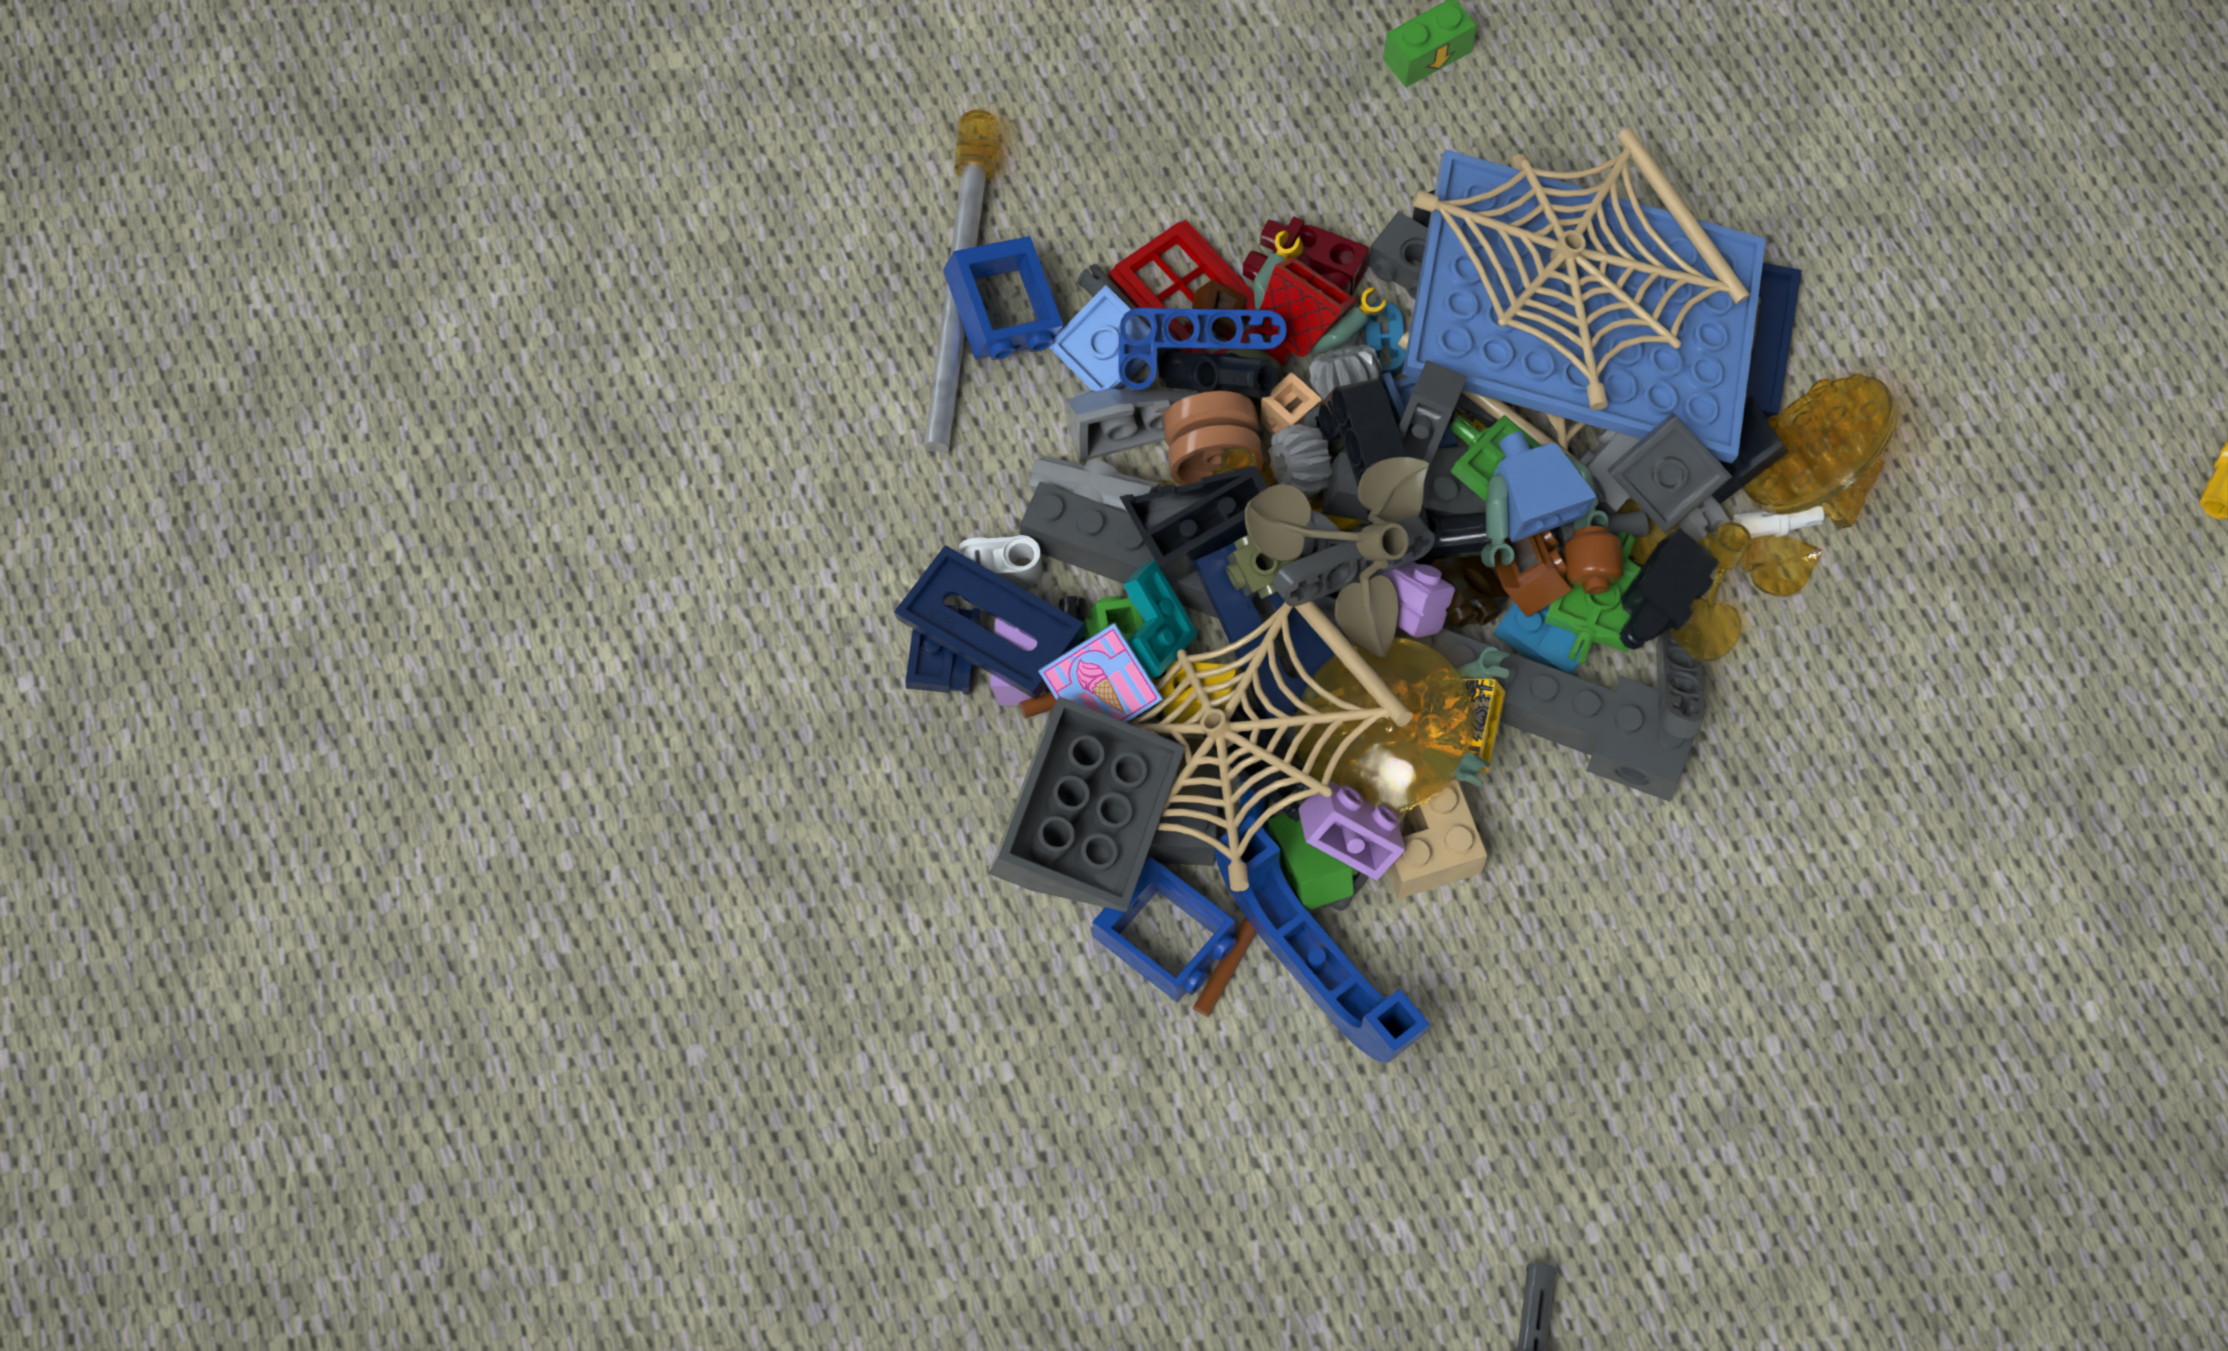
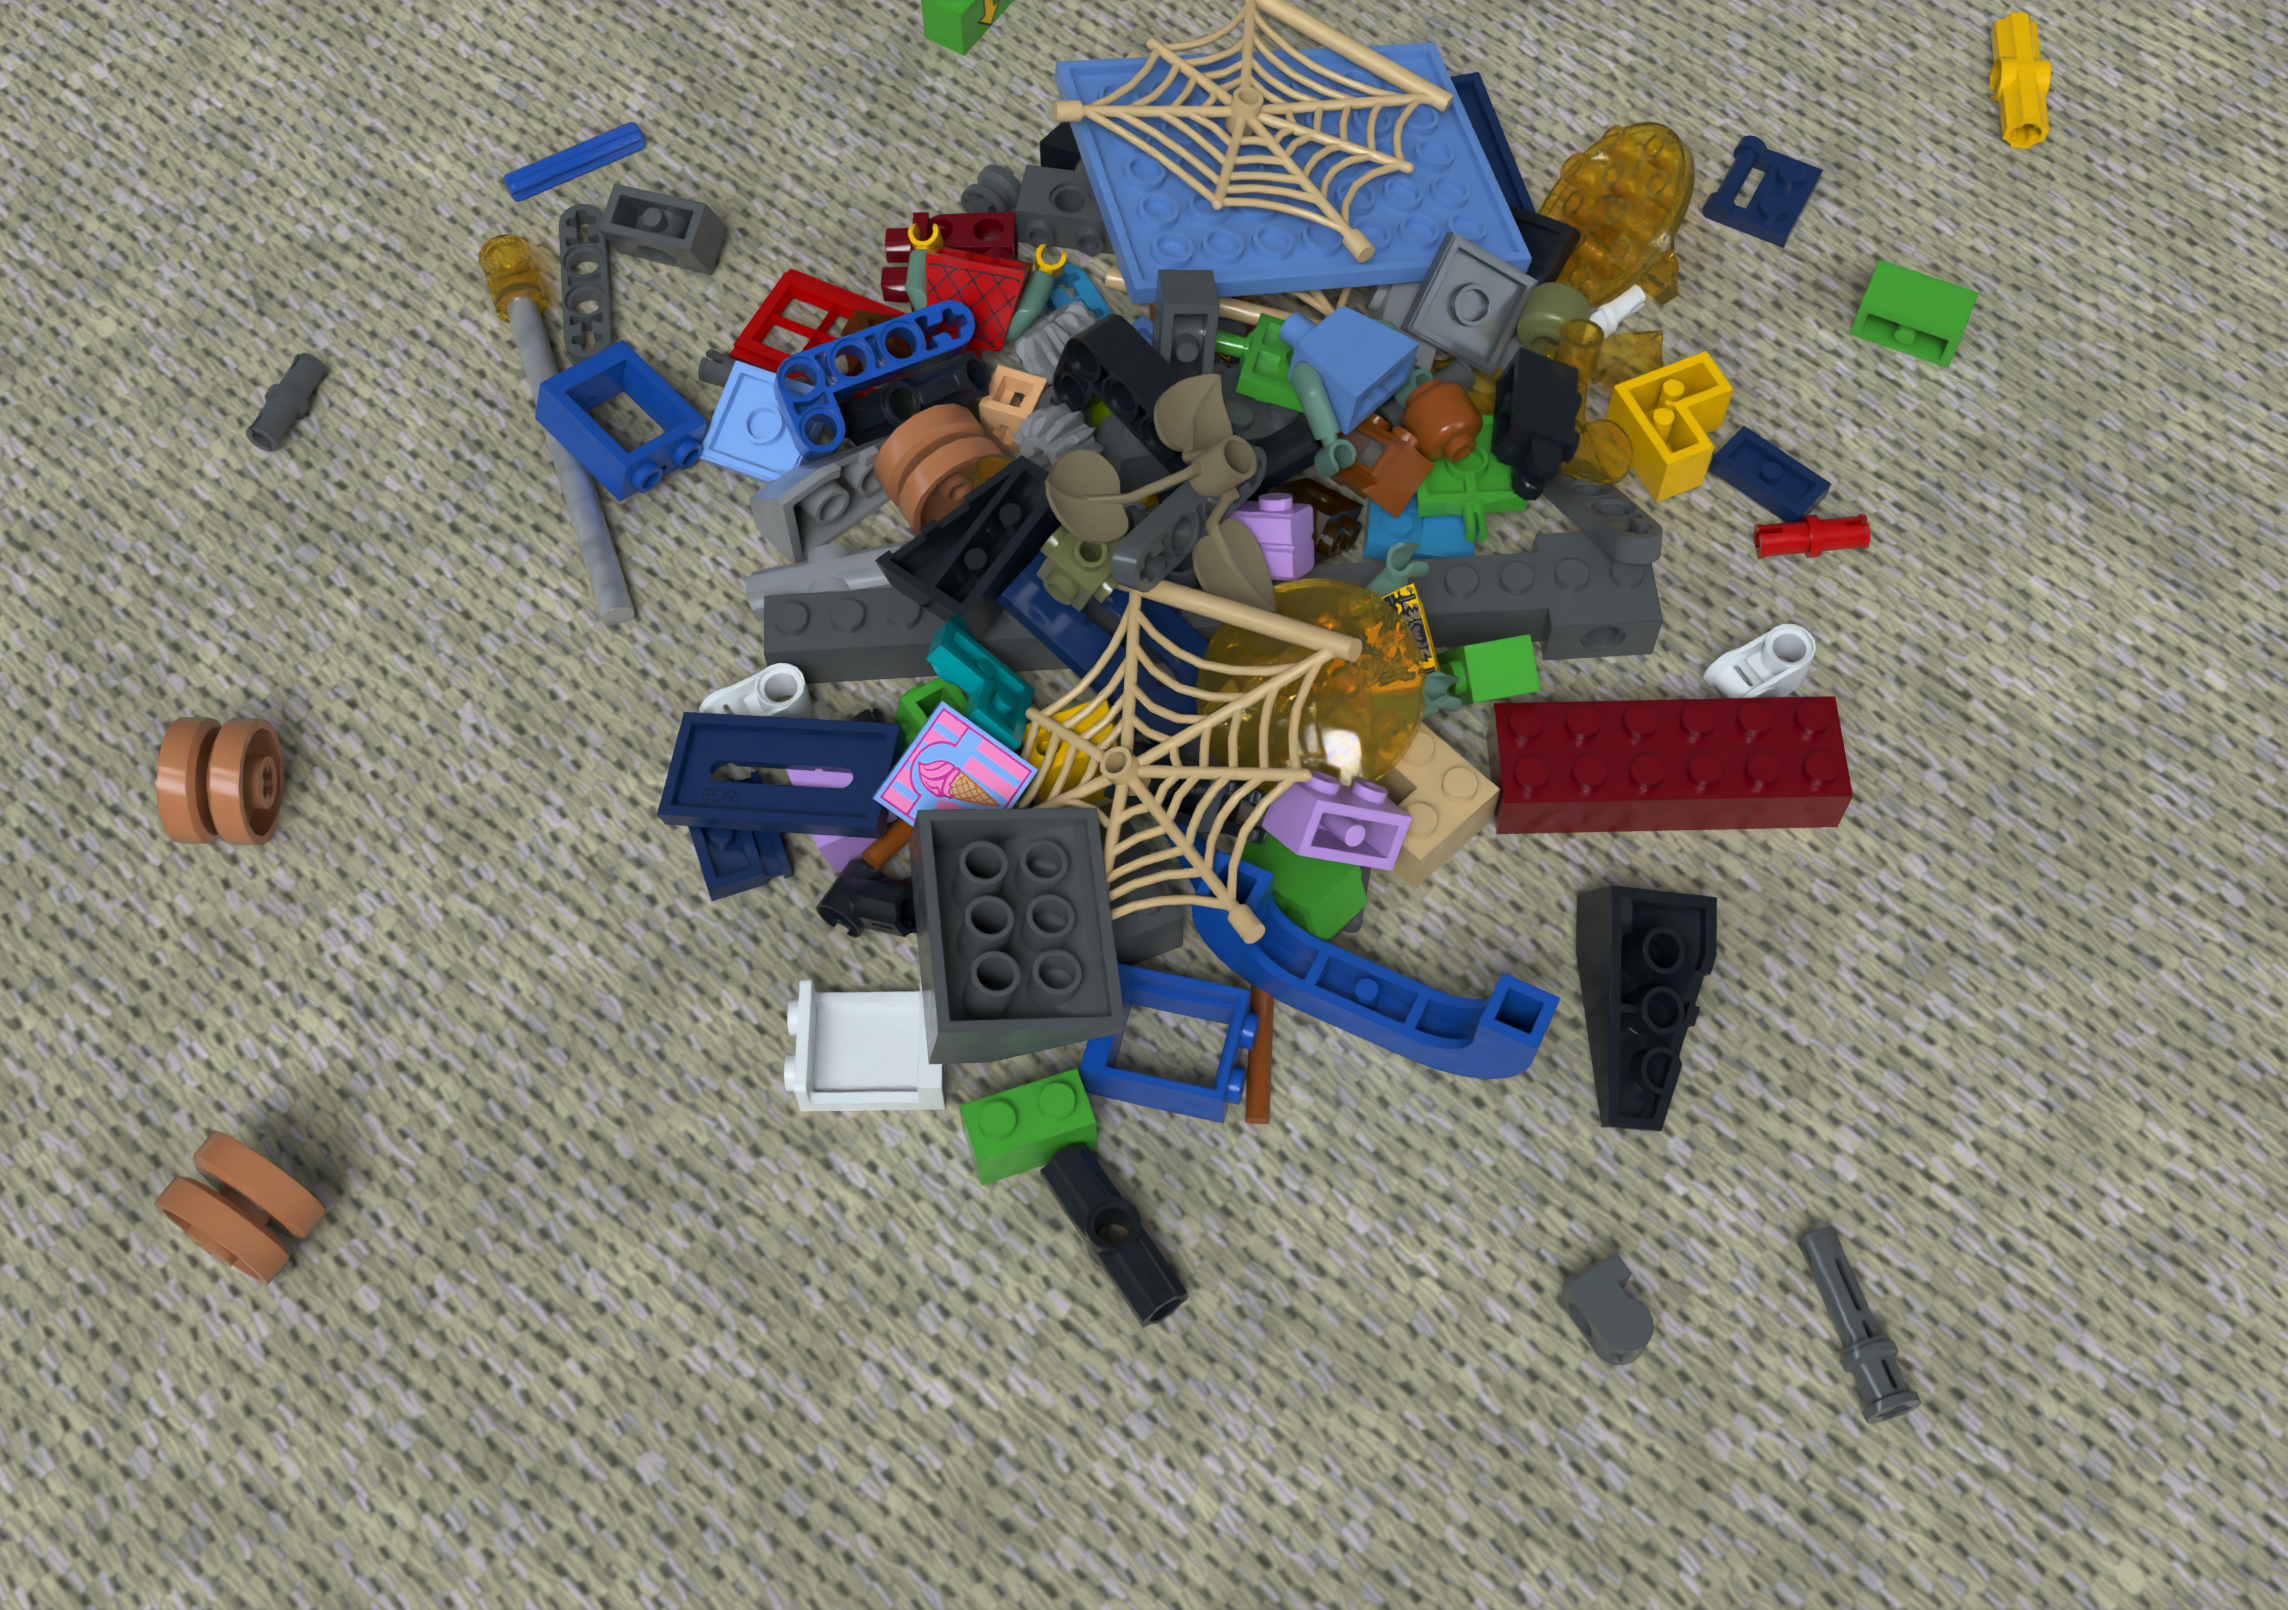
camera: 25 degrees left, 5 degrees down
(504, 769) = (234, 1217): none -> nougat wheel
(614, 459) = (220, 781): none -> nougat wheel
(776, 178) = (286, 402): none -> dark grey pin
(953, 840) = (861, 1052): none -> white panel
(1008, 737) = (868, 900): none -> black piece
(1026, 171) = (581, 288): none -> dark grey beam
(1041, 945) = (1027, 1125): none -> bright green brick
(1064, 1069) = (1131, 1265): none -> black piece
(1067, 62) = (574, 161): none -> blue axle
(1103, 151) = (663, 228): none -> dark grey brick
(1363, 222) = (994, 192): none -> dark grey wheel
(1365, 1256) = (1605, 1315): none -> dark grey leg
(1515, 1042) = (1639, 984): none -> black wedge
(1525, 765) = (1491, 670): none -> bright green brick
(1625, 891) = (1668, 765): none -> dark red brick
(1730, 503) = (1547, 311): none -> olive head
(1730, 856) = (1757, 670): none -> white piece
(1774, 623) = (1669, 421): none -> yellow brick
(1836, 704) = (1769, 476): none -> dark blue plate
(1841, 765) = (1812, 536): none -> red pin
(1983, 477) = (1777, 199): none -> dark blue plate
(2029, 621) = (1913, 313): none -> bright green brick

